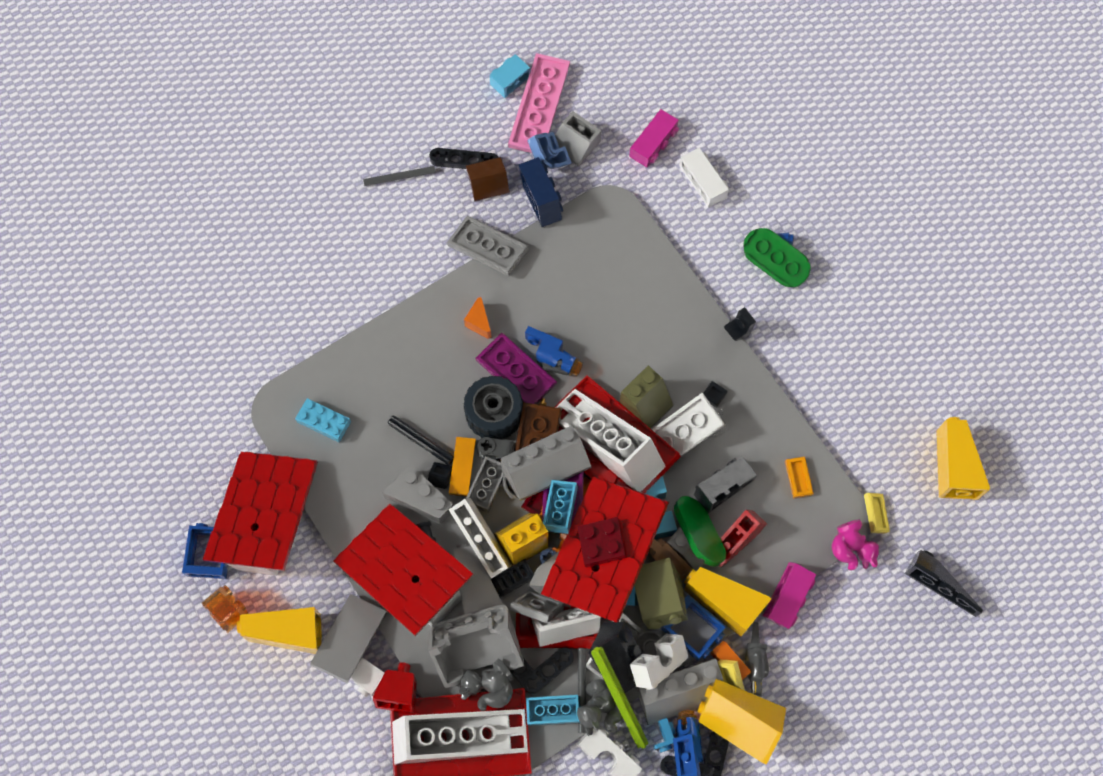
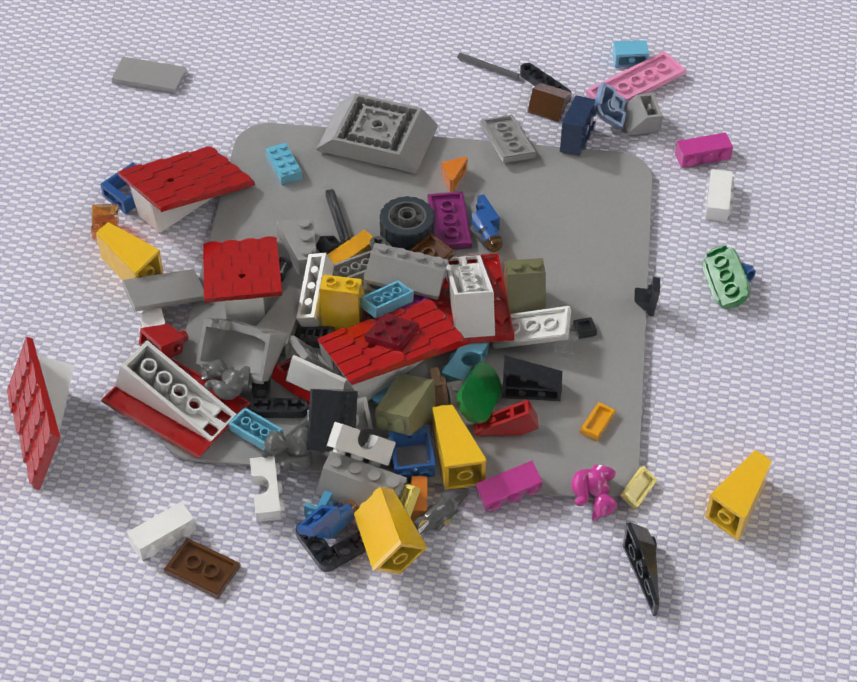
camera: 40 degrees right, 20 degrees down
(102, 412) = (149, 75): none -> light grey tile
(359, 347) = (396, 144): none -> light grey slope
(619, 697) = (307, 445): lime axle -> none

